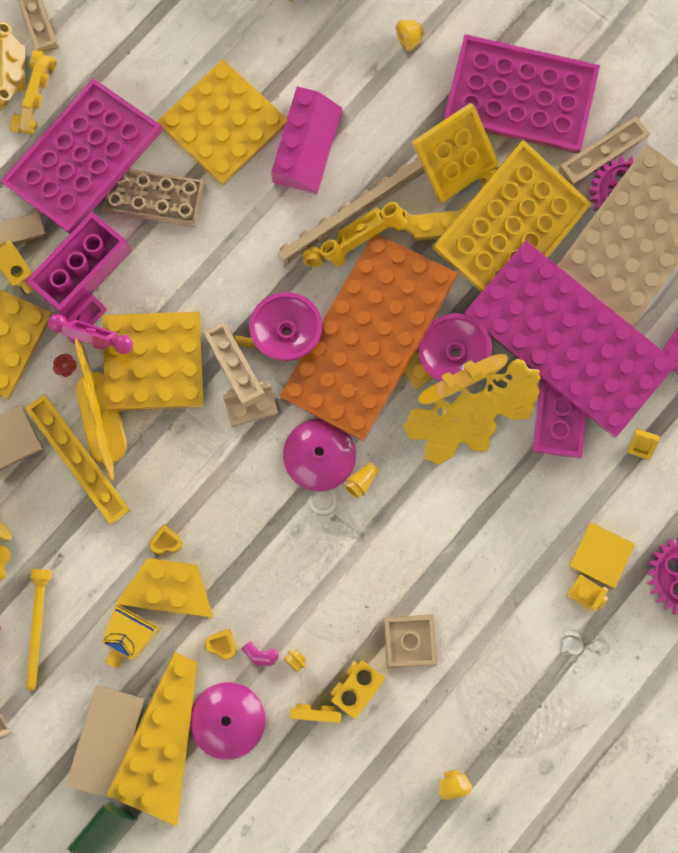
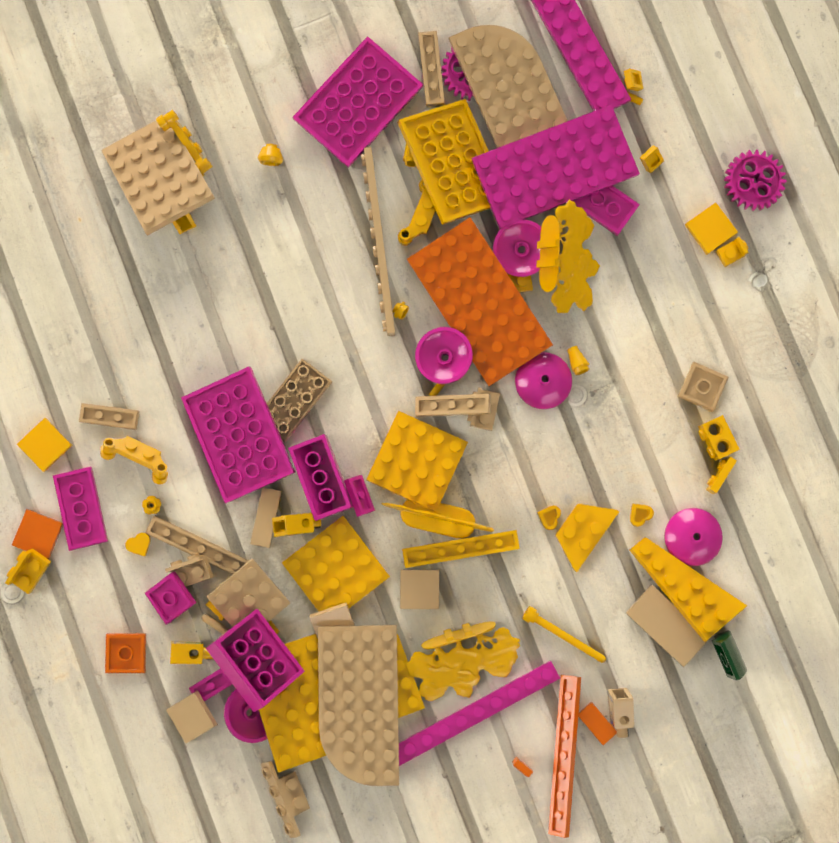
camera: 65 degrees left, 5 degrees up
(33, 100) = (150, 428): yellow plate -> none
(64, 359) = (386, 530): clear red plate -> none
(91, 334) = (379, 494): dark pink plate -> none
(127, 635) = (603, 574): yellow torso -> none
(222, 122) = (263, 322): yellow plate -> none
(260, 658) = (663, 493): dark pink arm -> none
(295, 660) = (677, 470): yellow plate -> none
(306, 141) = (311, 270): dark pink slope -> none
(361, 231) = (401, 266): yellow plate -> none
(454, 785) = (813, 408): yellow cone -> none
(455, 152) = (381, 171): yellow plate -> none

